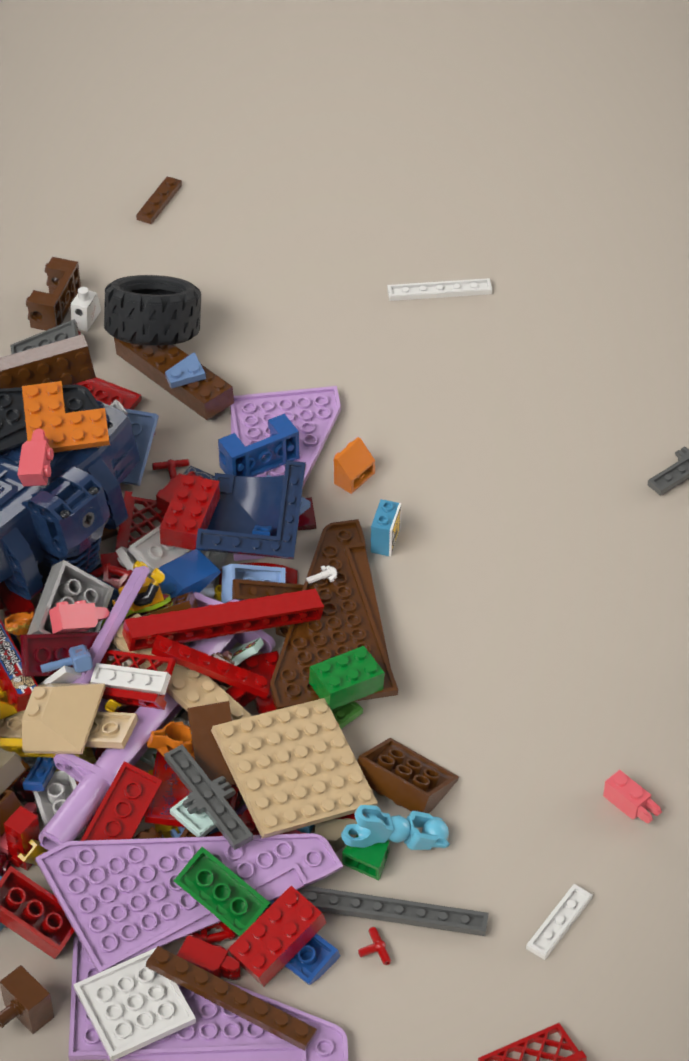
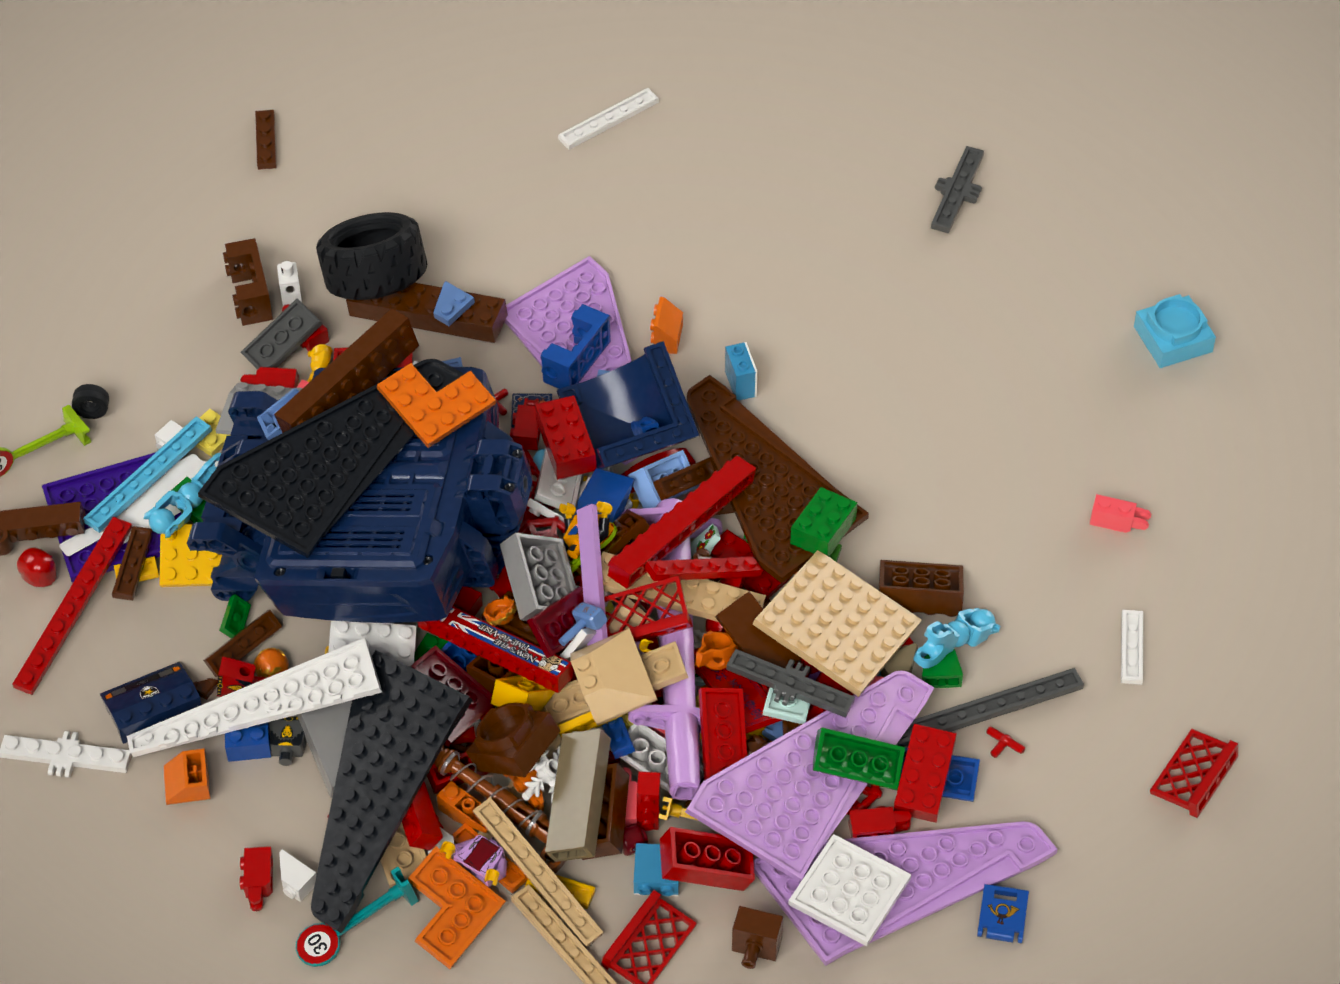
camera: 30 degrees left, 5 degrees up
(35, 460) = (448, 449): coral hinge -> none
(76, 616) = (558, 581): coral hinge -> none
(131, 678) = (649, 612): white plate -> none
(231, 998) = (925, 843): reddish brown plate -> none
(327, 572) = (729, 434): white piece -> none

